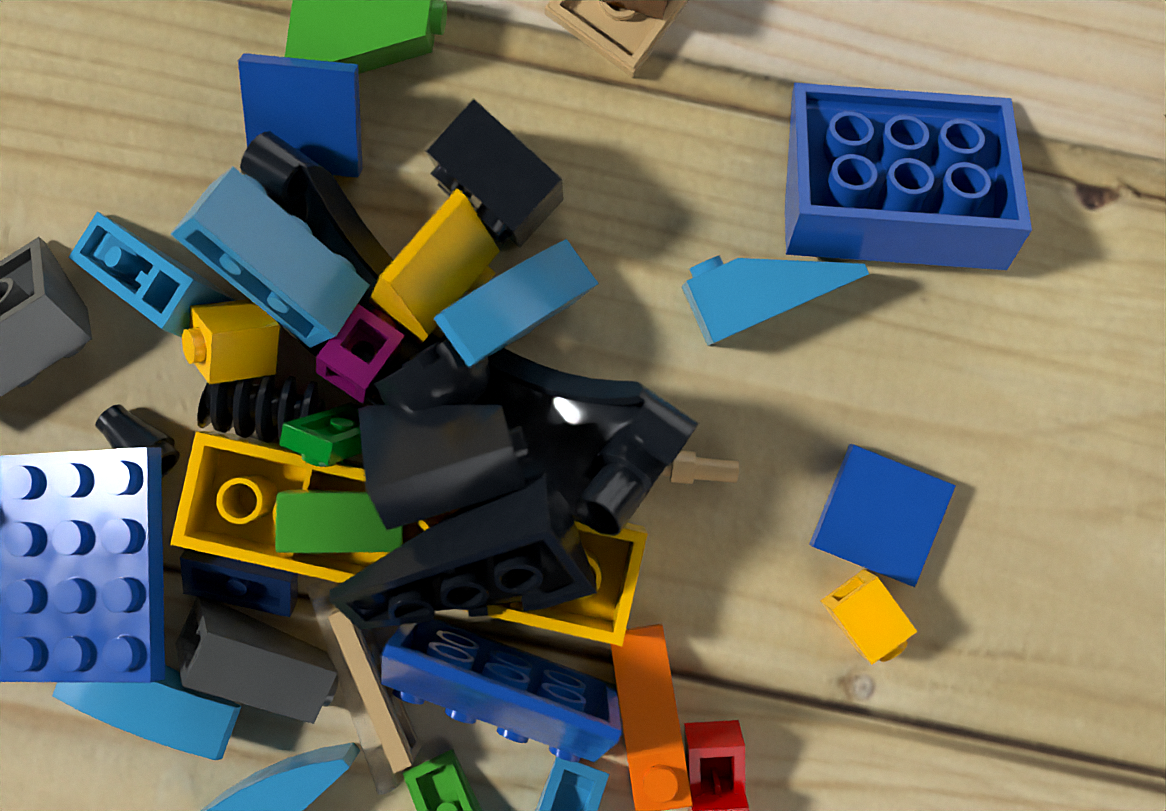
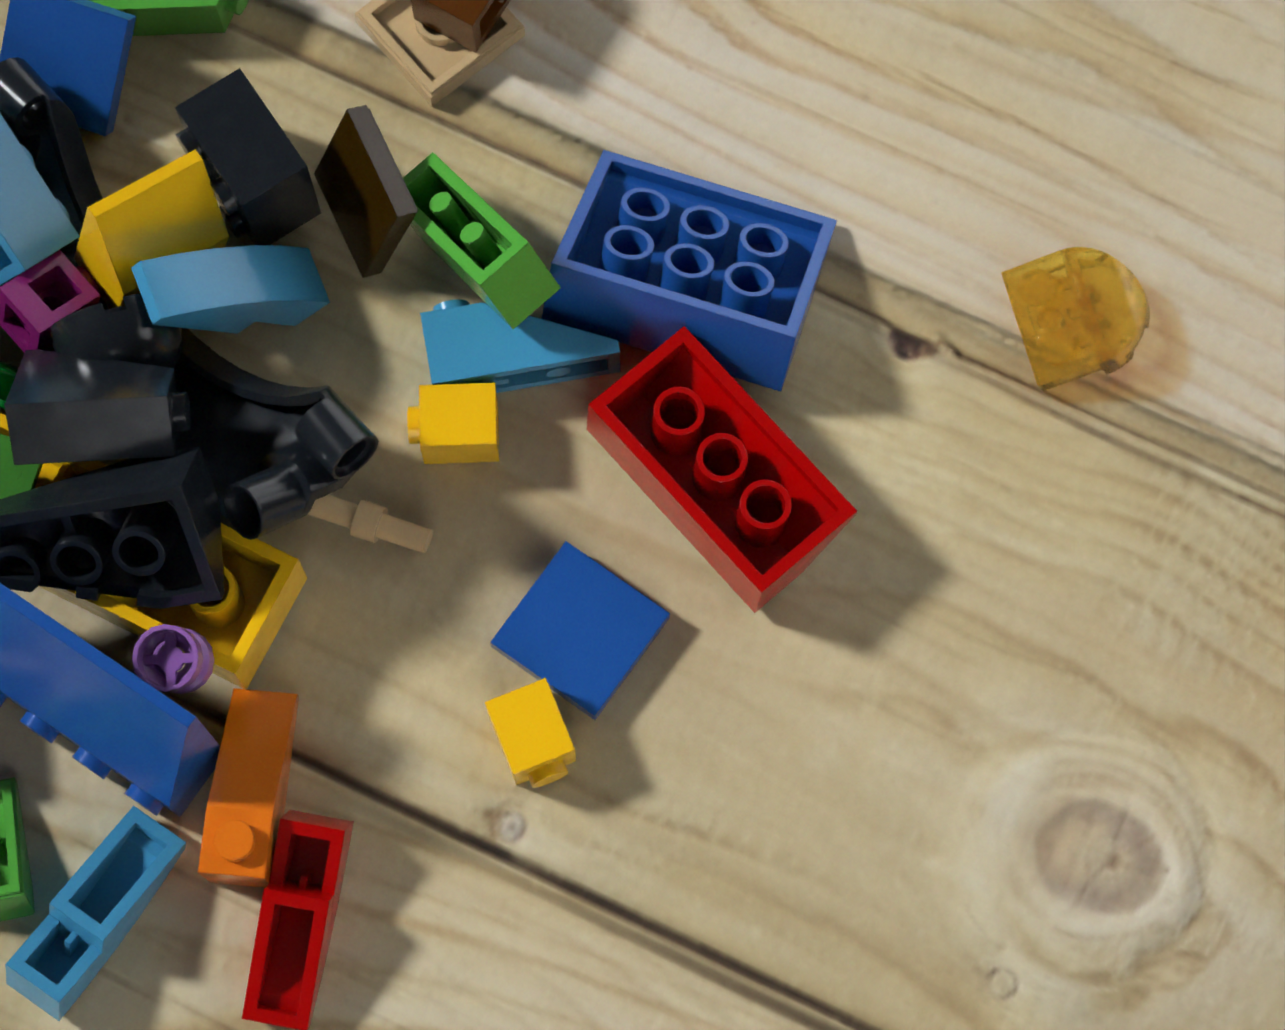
camera: 10 degrees right, 15 degrees down
(572, 671) = (159, 658): none -> medium lavender wheel
(608, 178) = (365, 191): none -> dark brown tile
(721, 205) = (477, 242): none -> bright green brick
(737, 366) = (456, 423): none -> yellow brick
(980, 356) = (719, 468): none -> red slope

